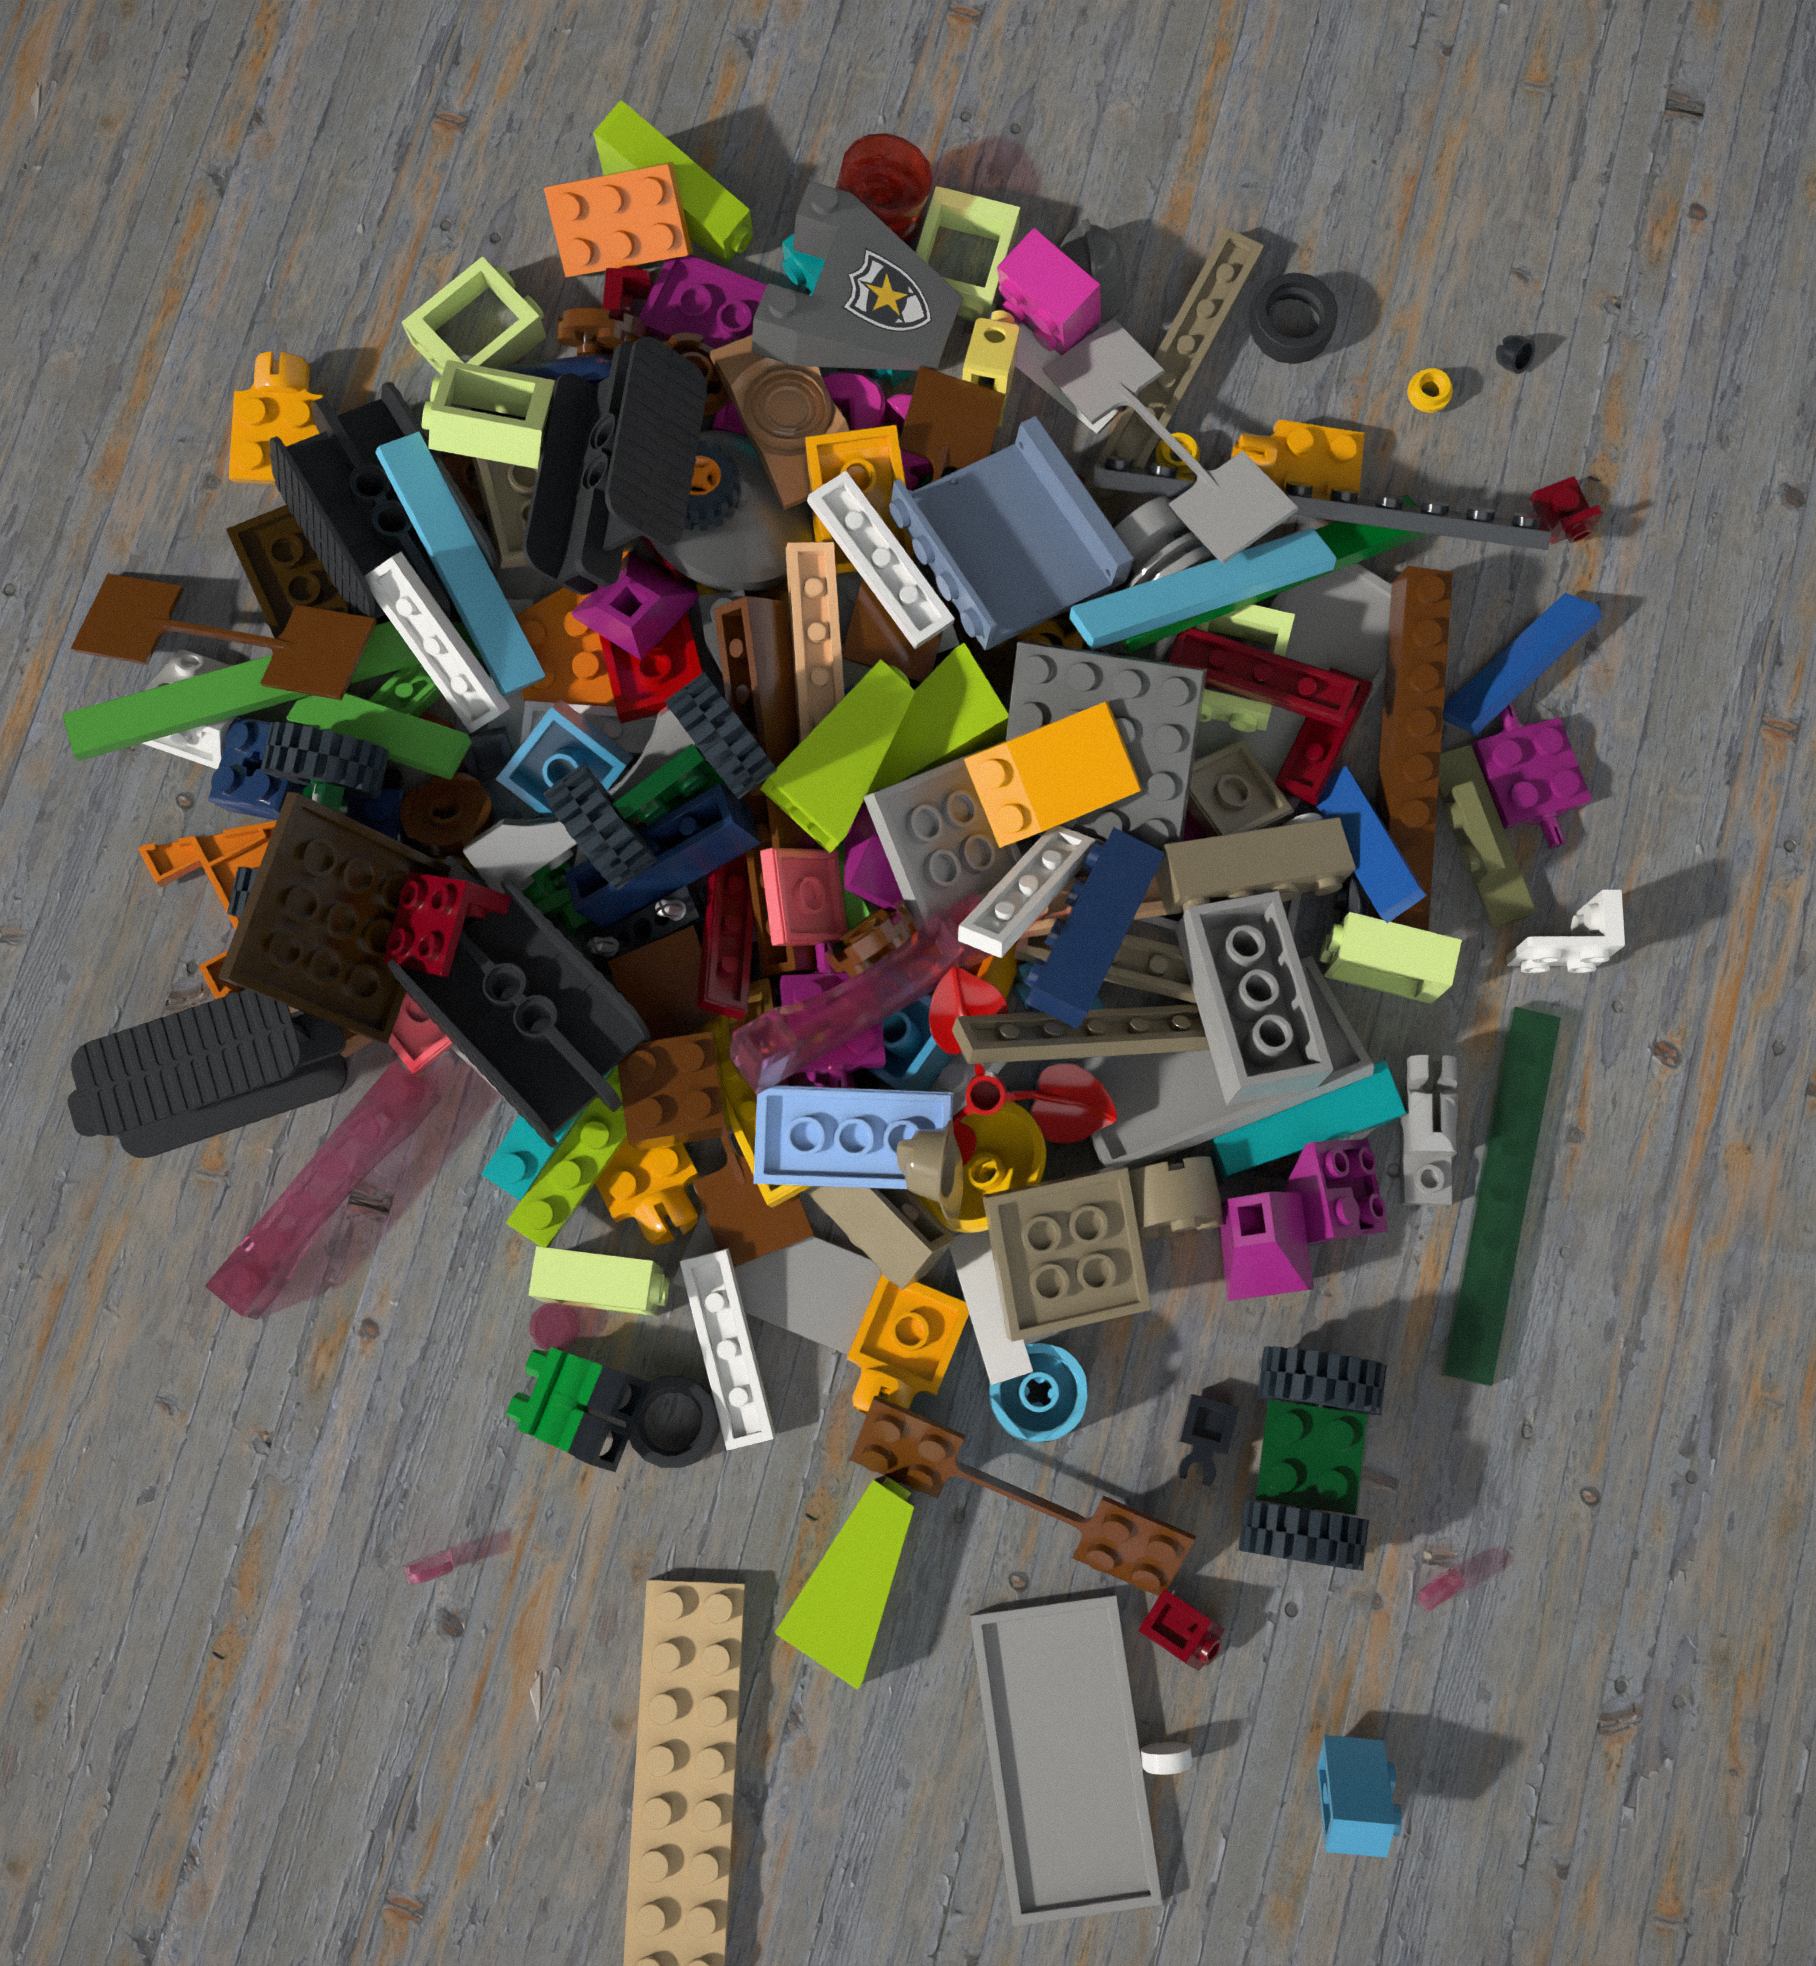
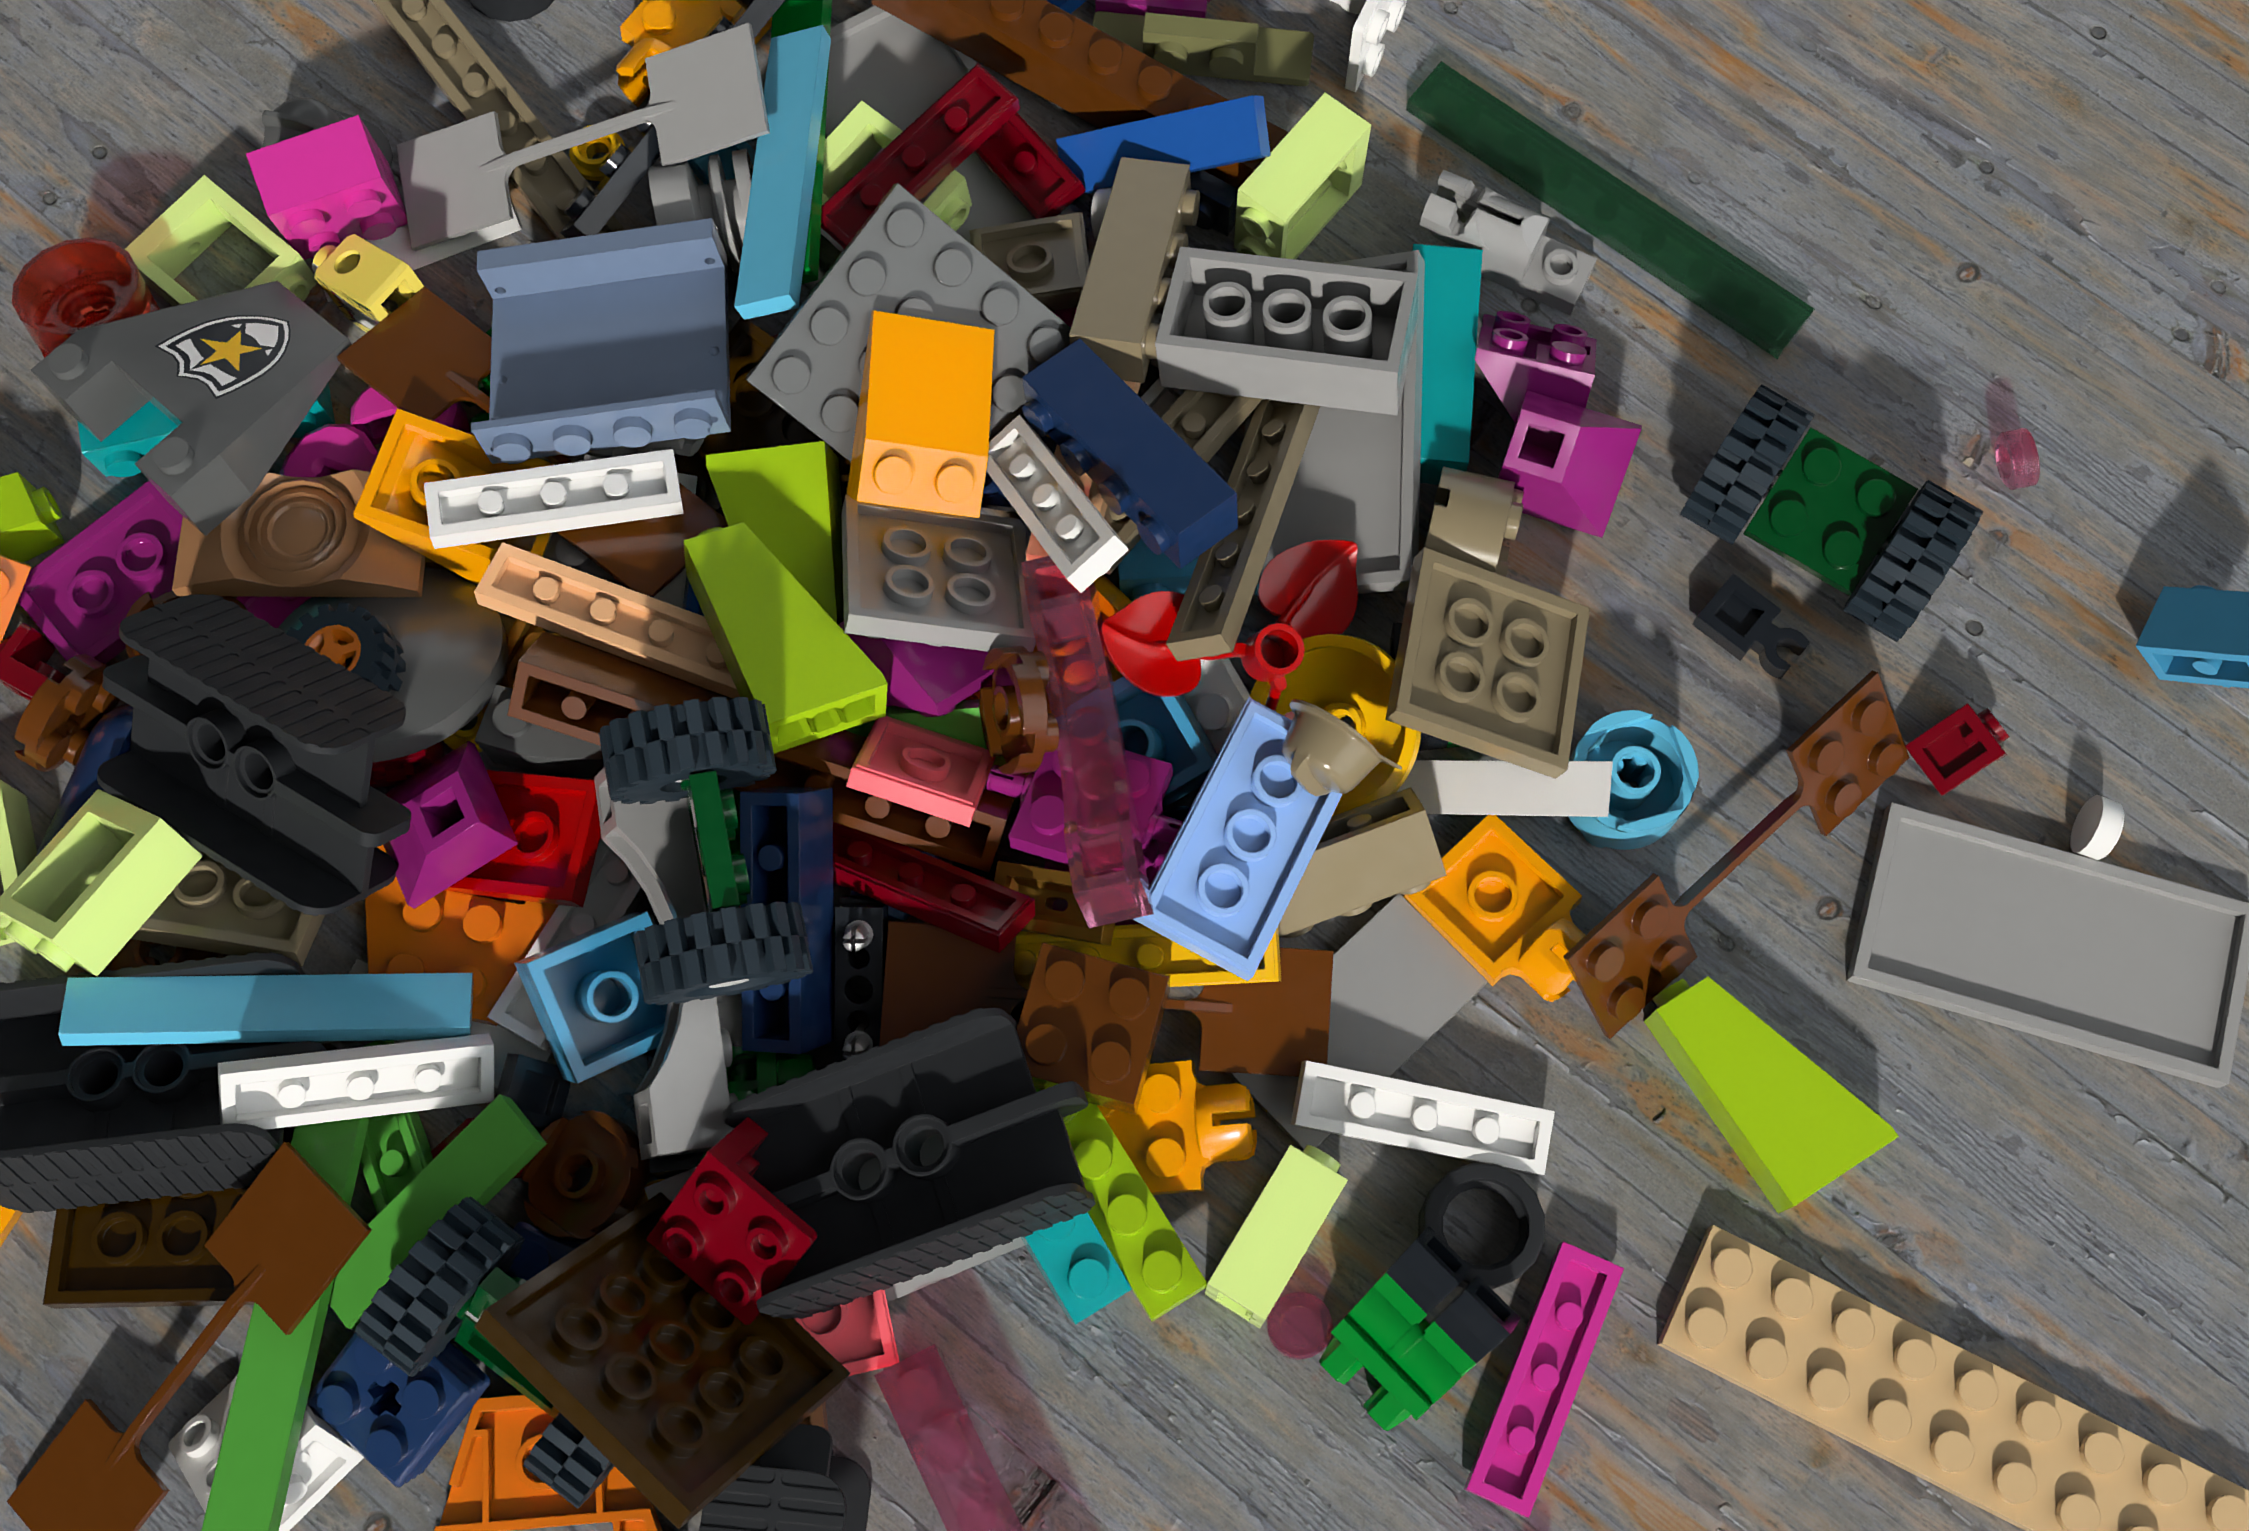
camera: 65 degrees left, 5 degrees down
(588, 1508) = (1543, 1379): none -> dark pink plate

